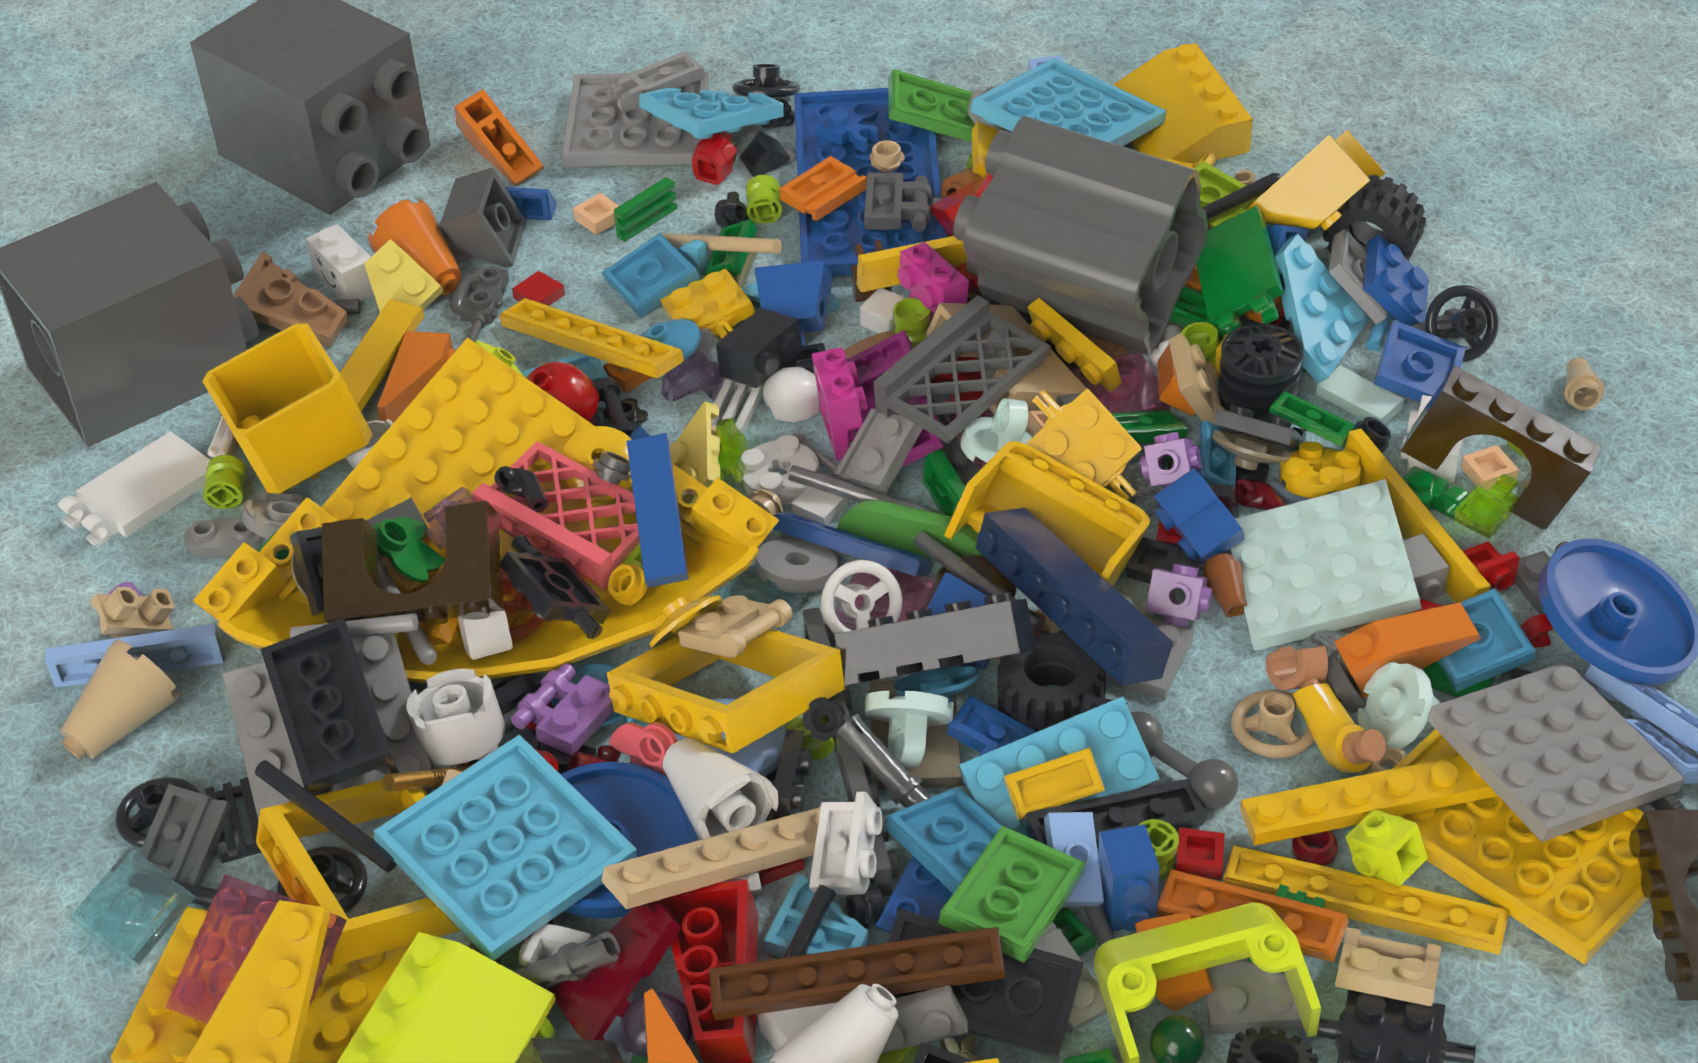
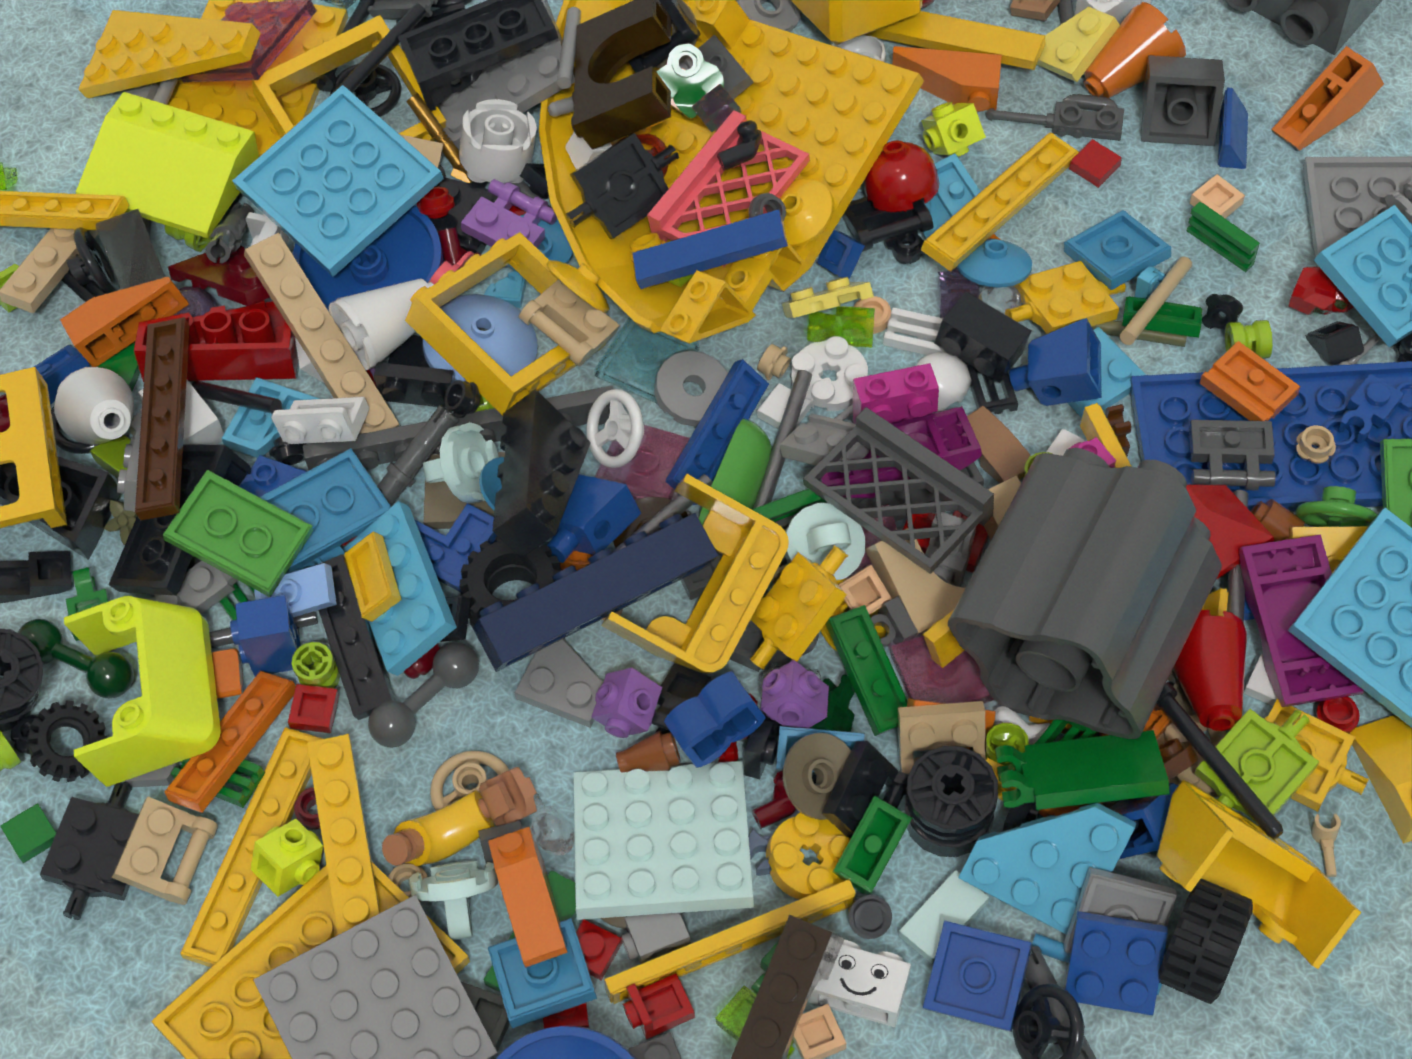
camera: 90 degrees right, 15 degrees up
(952, 146) = (1335, 510): none -> bright green piece

